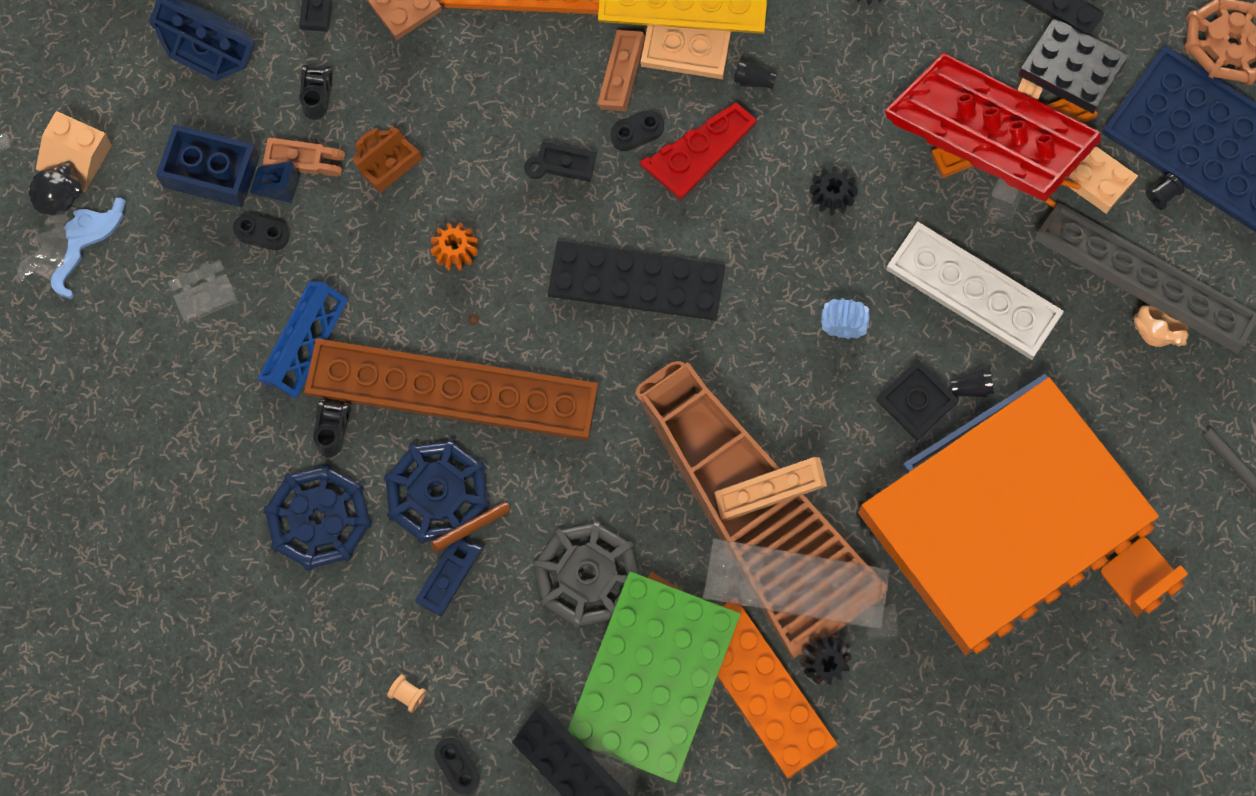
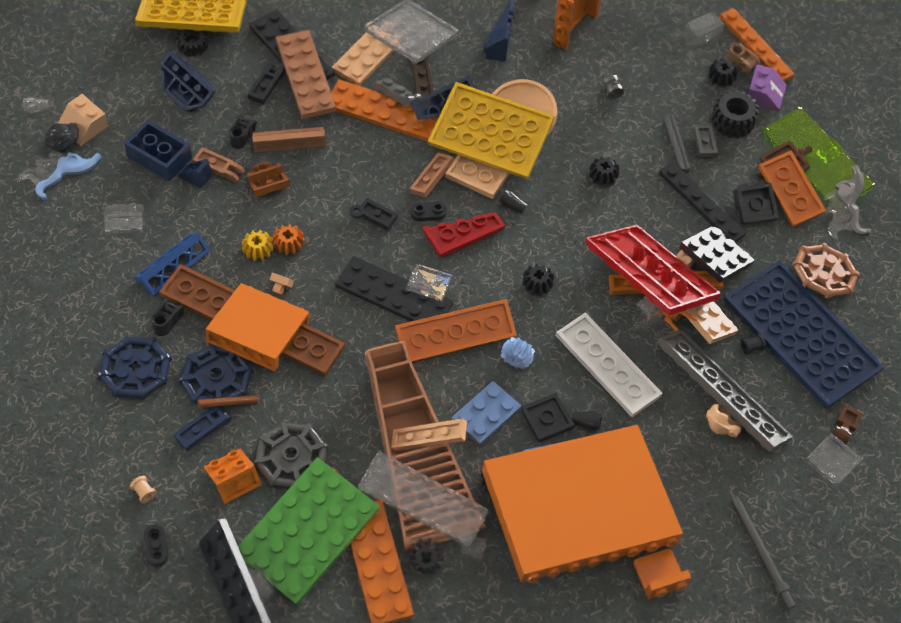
camera: 10 degrees right, 15 degrees down
(259, 232) = (173, 196): black plate -> none
(389, 83) = (289, 139): none -> nougat fence
(424, 274) = (257, 245): none -> yellow gear
(466, 400) = (255, 326): none -> orange panel
(471, 317) = (281, 282): none -> light nougat tile
(519, 630) = (233, 475): none -> orange bracket
(681, 248) = (429, 282): none -> clear tile
(748, 311) = (457, 330): none -> orange plate
(830, 420) = (487, 412): none -> medium blue plate

